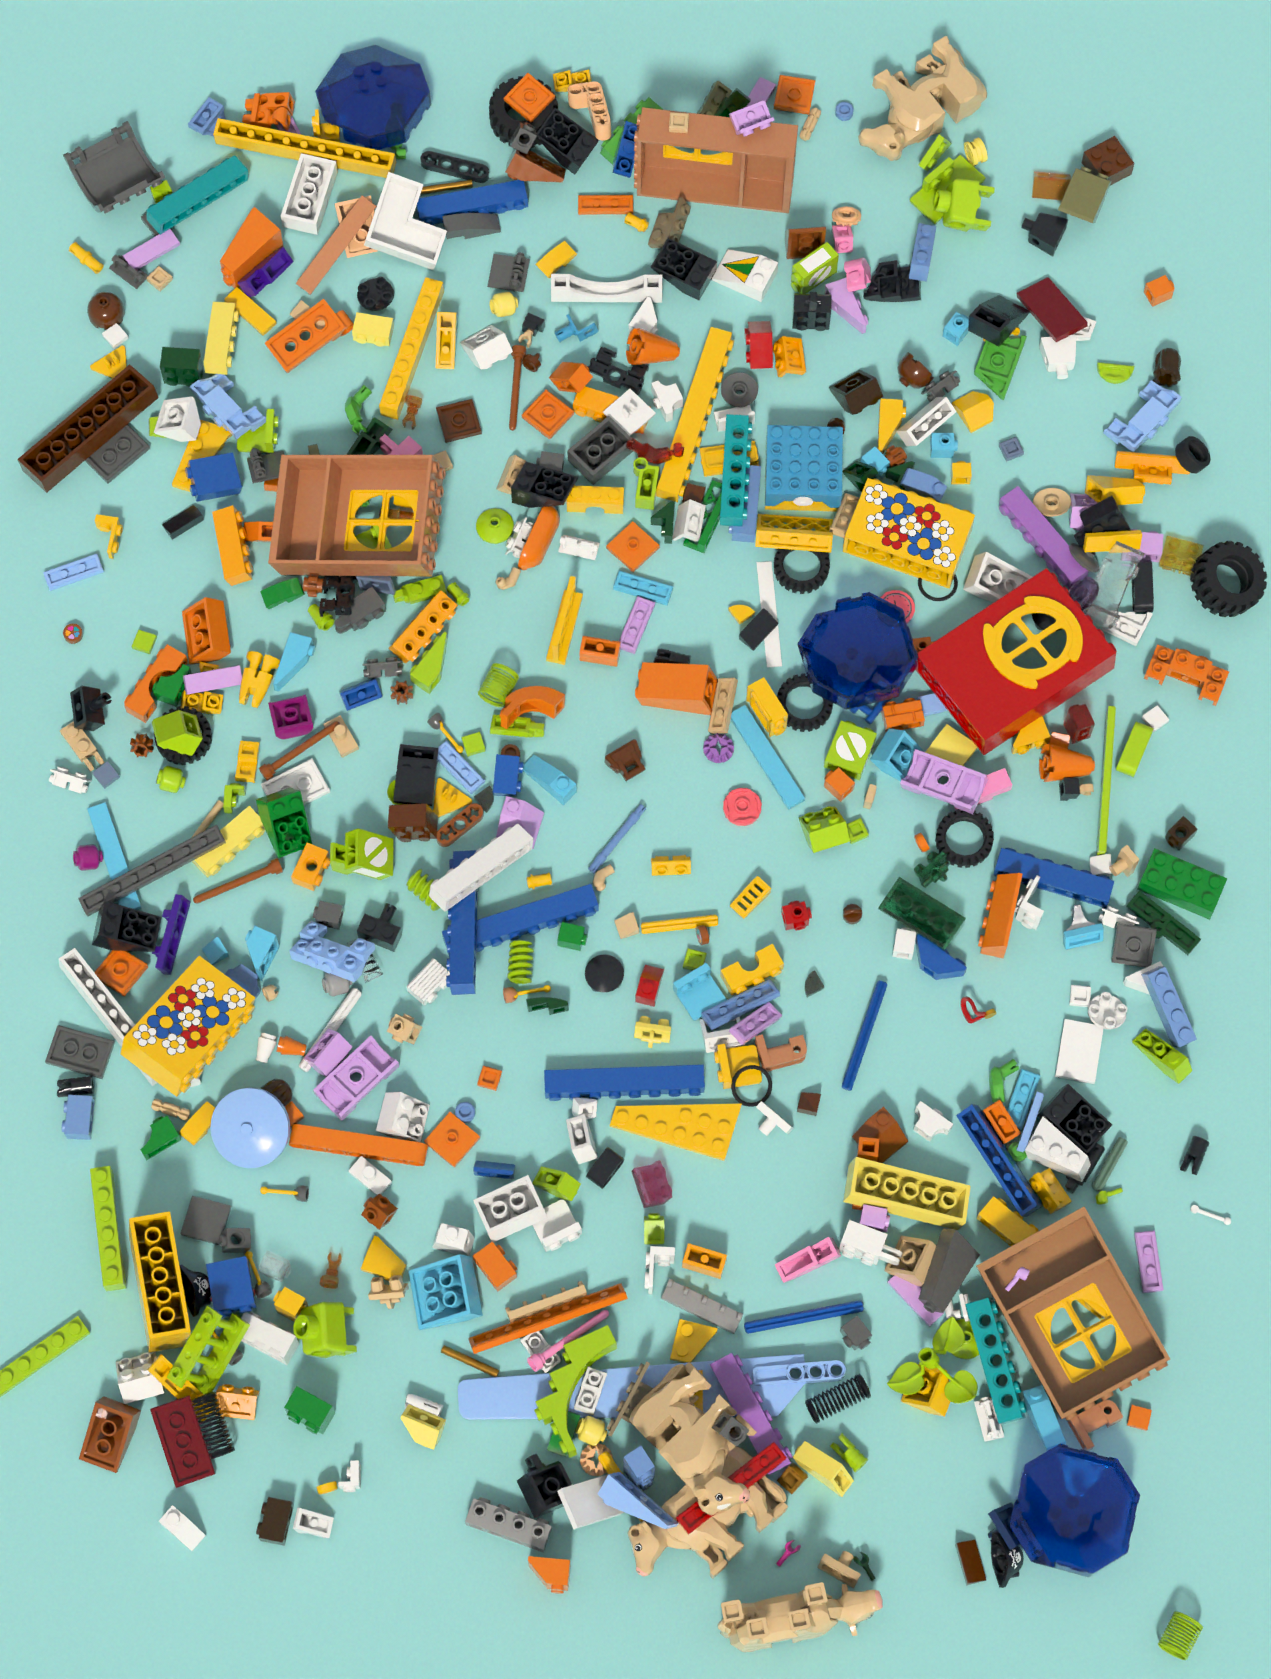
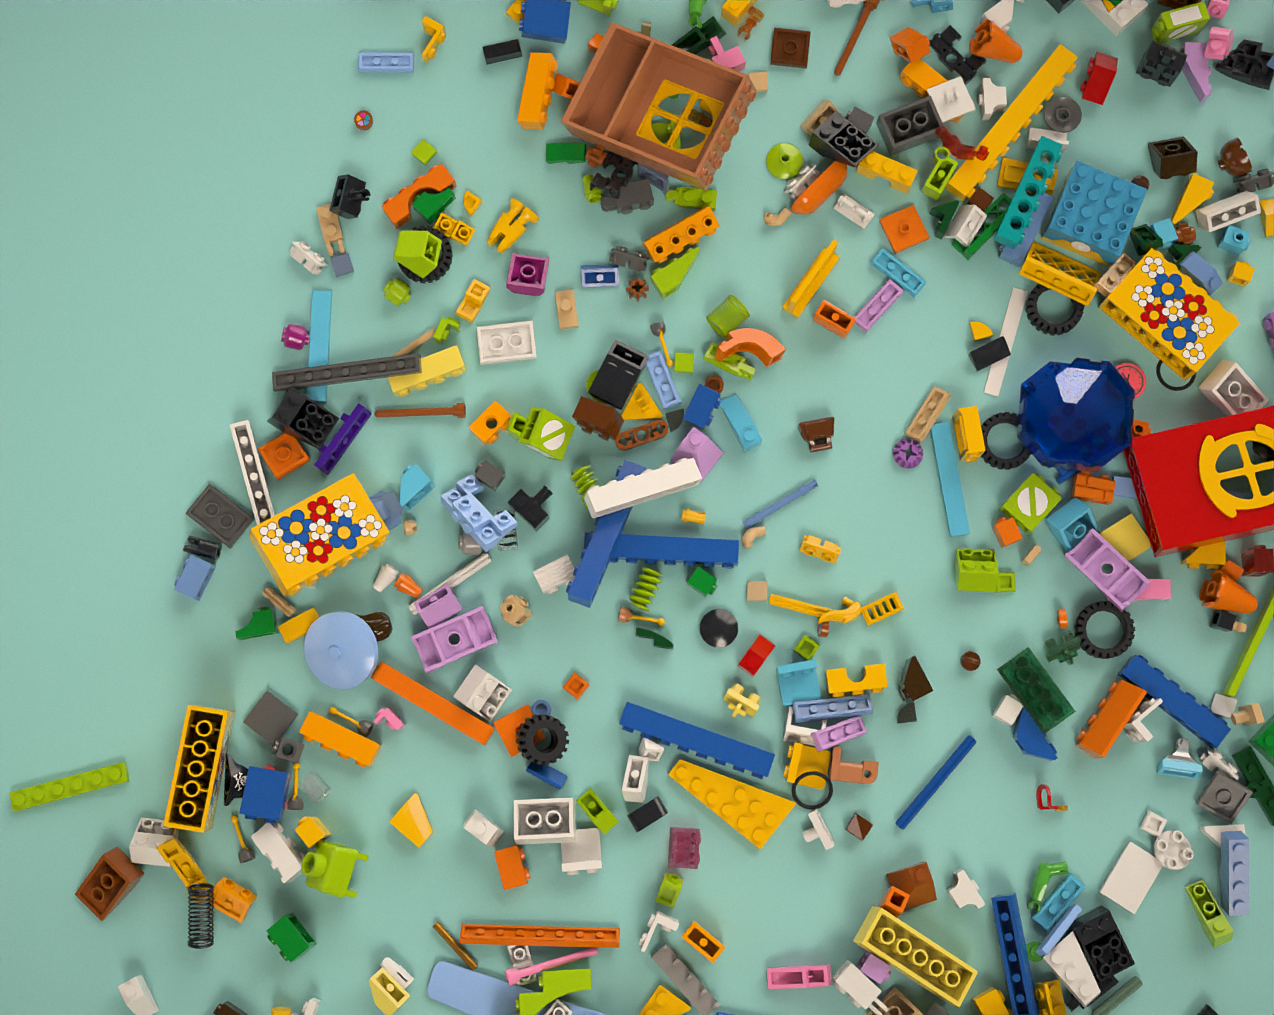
camera: 25 degrees right, 10 degrees up
(107, 1228) = (184, 670): lime arch -> none
(141, 745) = (383, 250): dark orange gear -> none
(182, 1441) = (169, 918): dark red tile -> none
(206, 631) = (483, 163): orange slope -> none
(212, 679) = (470, 212): lavender tile -> none
(215, 951) = (375, 469): medium azure slope -> none
(218, 1358) = (228, 856): lime fence -> none
(264, 466) = (595, 26): dark grey hinge -> none
(268, 770) = (489, 316): dark orange piece -> none
(282, 1212) = (340, 738): none -> light orange brick
(285, 821) = (483, 372): green slope -> none
(293, 1113) = (385, 649): orange tile -> none
(294, 658) = (553, 218): medium azure slope -> none
(325, 1174) = (393, 720): none -> bright pink bracket
(330, 1280) = (359, 820): clear orange piece -> none
(370, 1176) = (432, 736): white tile -> none
(378, 1211) = (426, 773): dark orange brick -> none
(390, 1293) = (405, 853): tan hips -> none
(445, 1292) = (457, 874): medium azure slope -> none
(458, 594) = (725, 214): lime pin -> none
(491, 1129) = (557, 744): none -> black tyre
(531, 362) = (879, 17): reddish brown tile -> none
(546, 1303) = (544, 922): tan hinge -> none
(547, 414) = (874, 72): orange plate -> none
(667, 656) = (898, 352): black hinge -> none
(677, 687) = (892, 381): orange slope -> none
(723, 910) = (843, 615): none -> yellow piece
(742, 806) = (908, 518): coral tile -> none
(789, 356) = (1122, 99): light orange bracket -> none
(796, 915) = (910, 646): red brick -> none
(807, 950) = (913, 681): none -> dark brown slope
(1001, 1122) = (1031, 918): orange slope -> none

